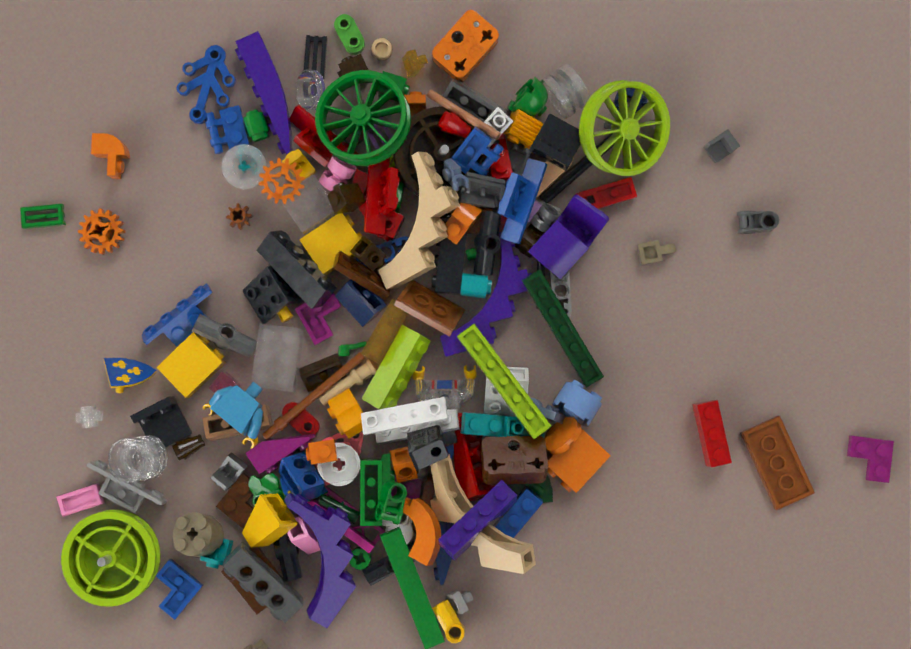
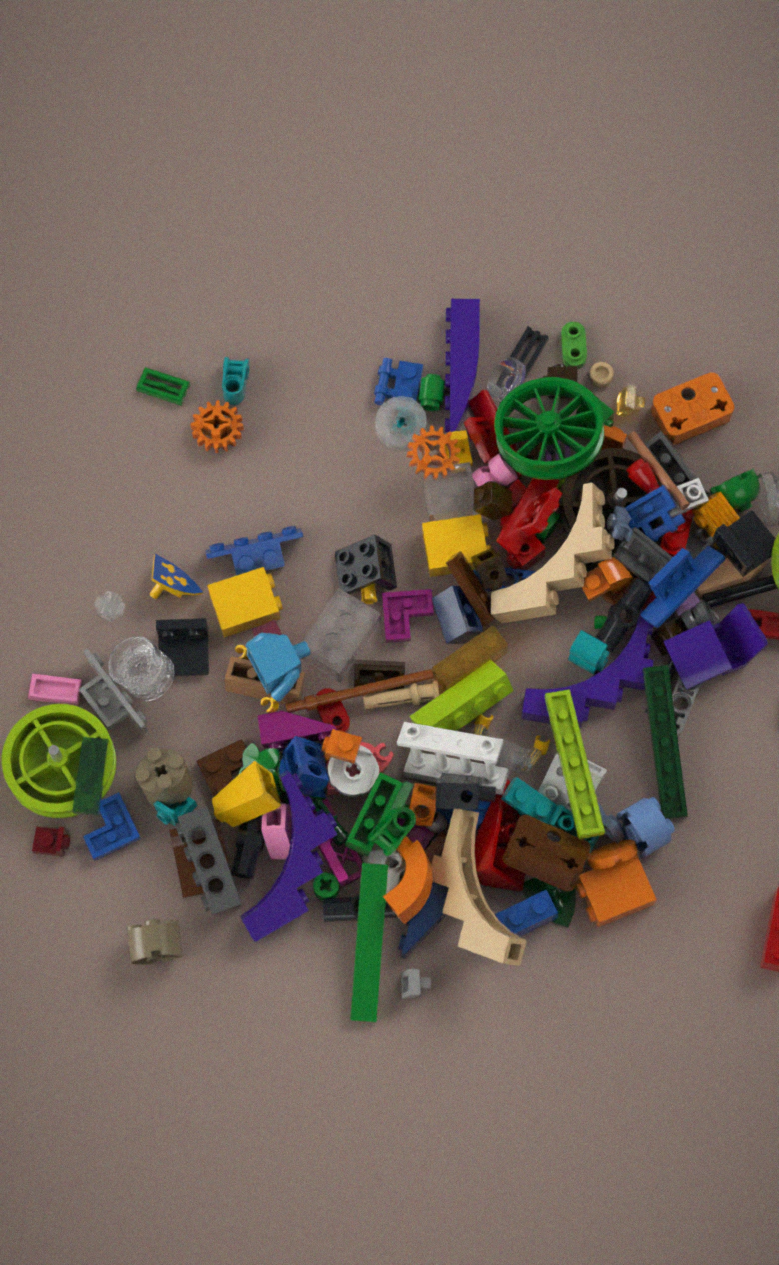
camera: 25 degrees right, 15 degrees down
(94, 182) = (235, 376): none -> teal piece
(110, 147) = (269, 350): orange brick -> none
(136, 619) = (51, 841): none -> dark red bracket
(140, 563) = (90, 776): none -> clear green tile
(187, 447) = (197, 685): dark brown cone -> none
(207, 81) = (400, 327): blue plant -> none
(213, 331) = (294, 586): dark grey piece -> none
(229, 471) = (229, 729): dark grey bracket -> none
(235, 220) = (372, 469): dark orange gear -> none
(296, 268) = (405, 551): black brick -> none
(344, 350) = (416, 659): green hand -> none
(347, 412) = (387, 724): light orange brick -> none
(430, 307) = (529, 654): dark orange tile -> none
(448, 618) = (392, 999): yellow piece -> none
(450, 266) = (570, 620): black brick -> none
(467, 528) = (451, 897): dark purple arch -> none

